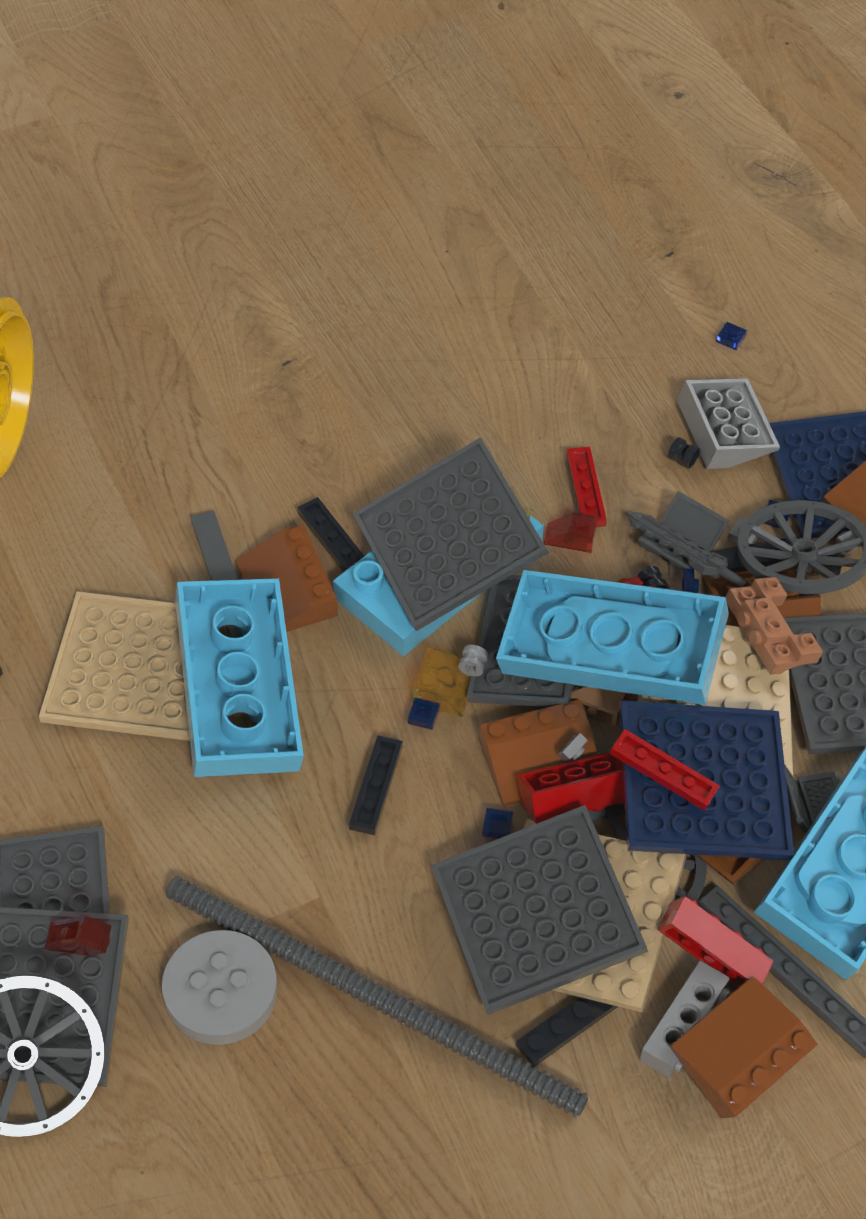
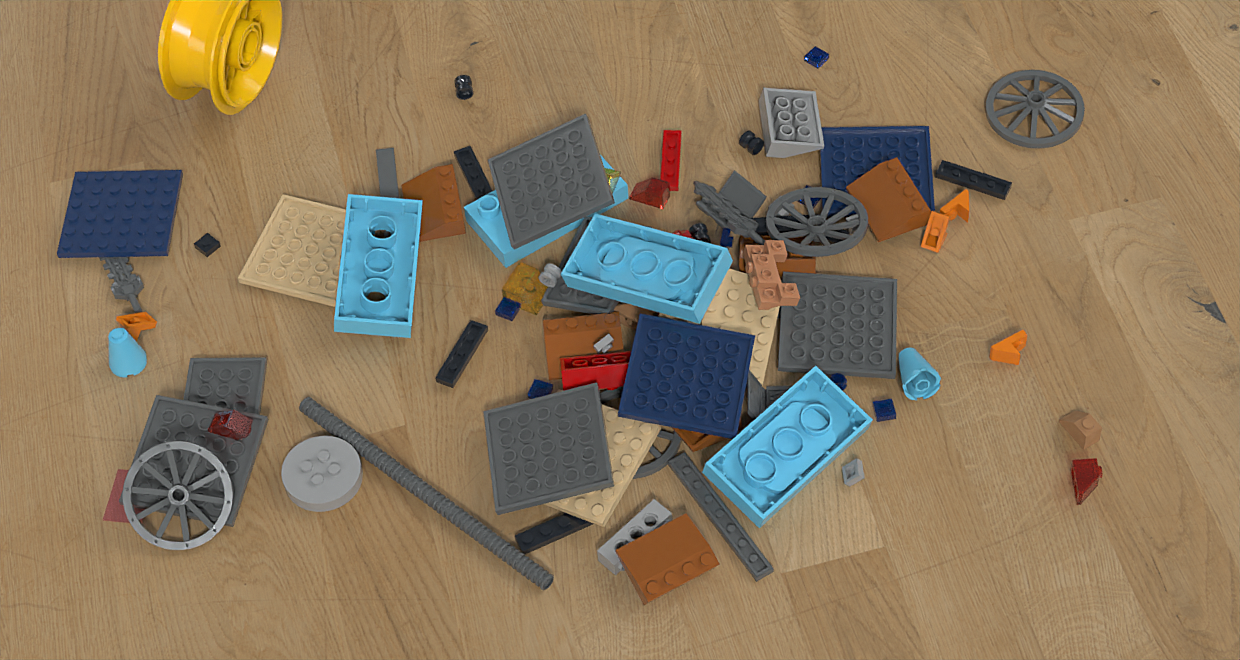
camera: 15 degrees right, 0 degrees up
(289, 420) = (463, 87): none -> black wheel
(664, 769) = (655, 364): red plate -> none
(713, 942) = (664, 487): brick -> none

